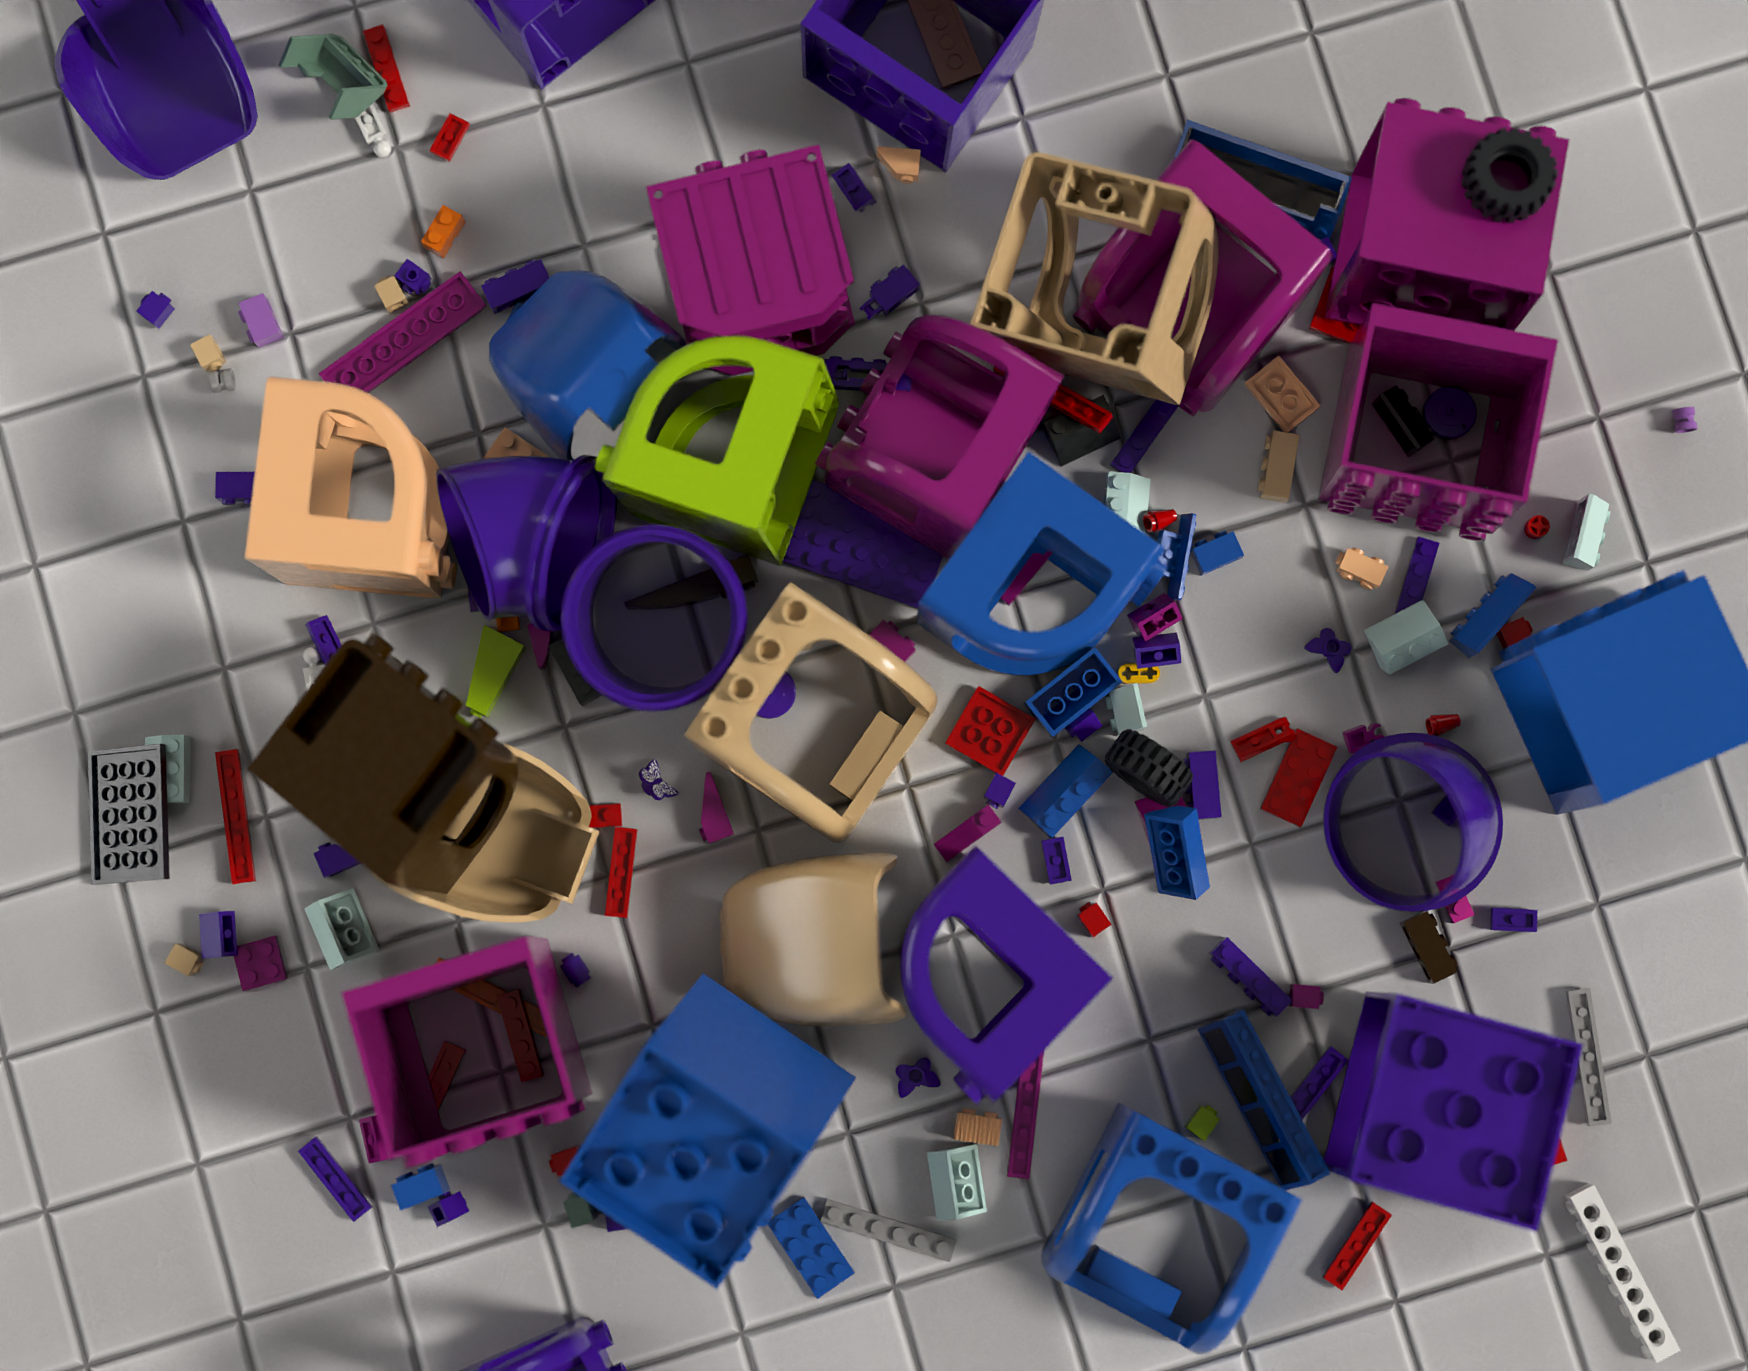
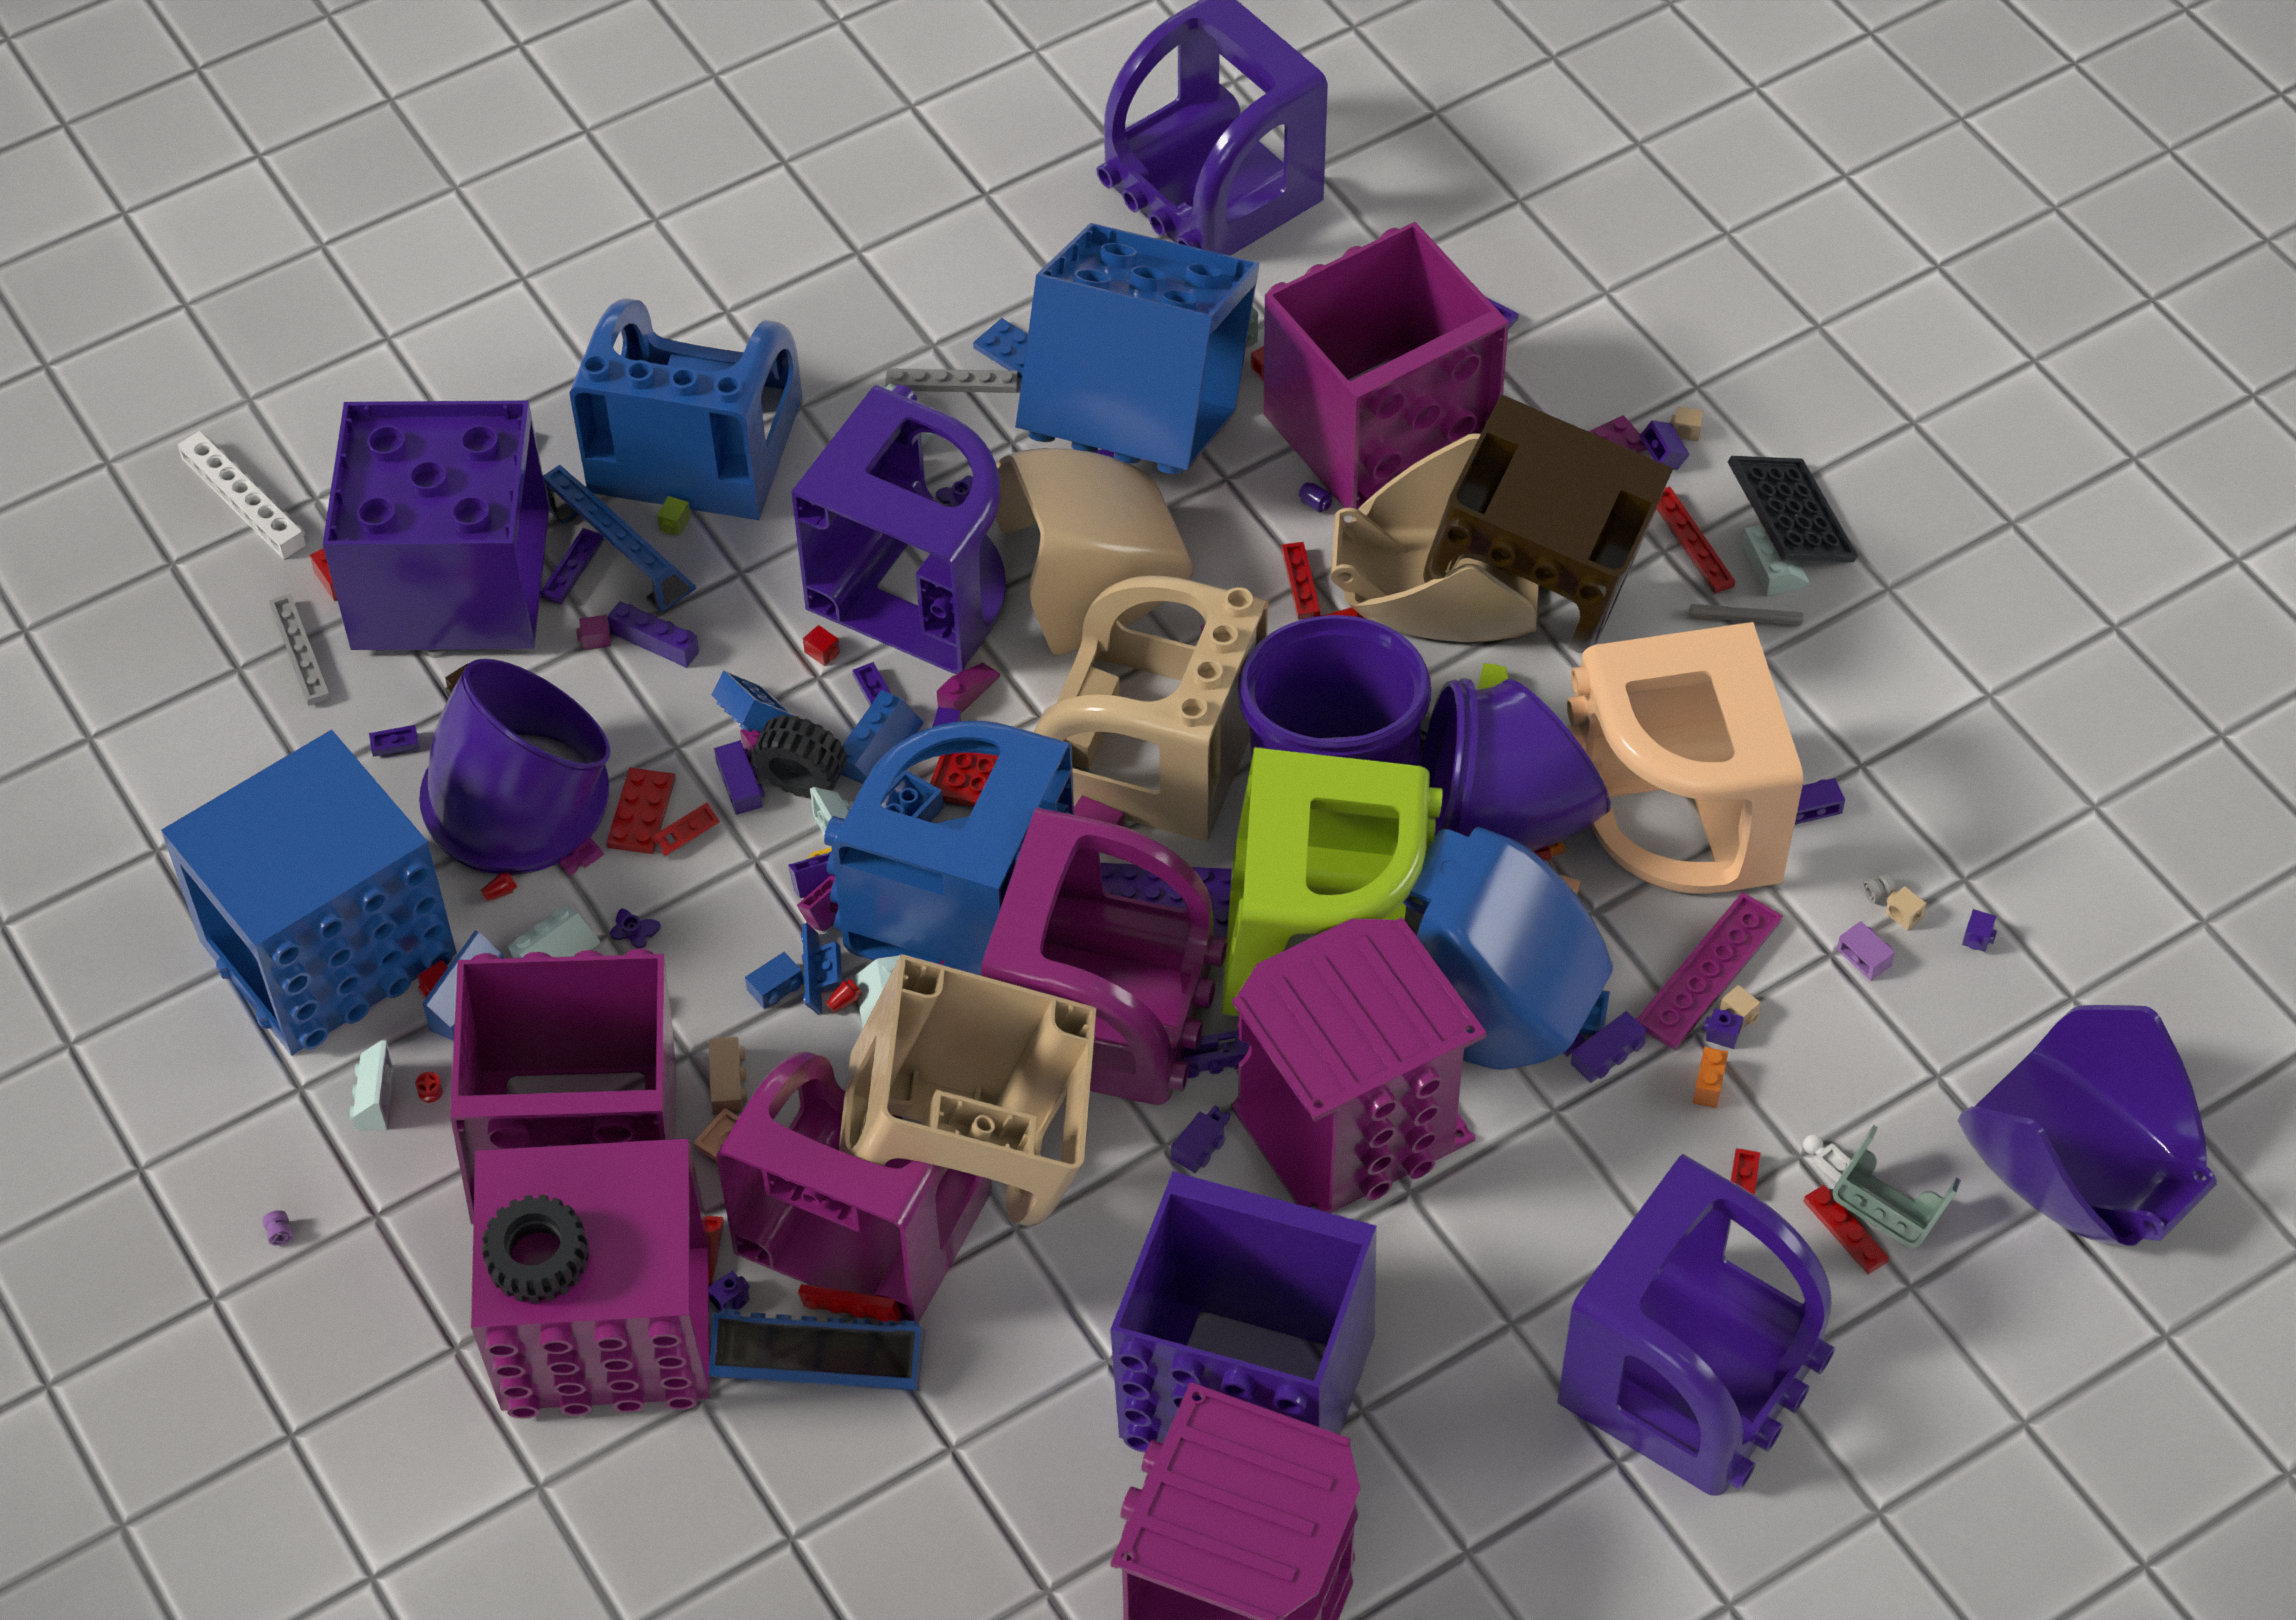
camera: 165 degrees right, 30 degrees down
(219, 715) = (1746, 614): none -> light grey axle

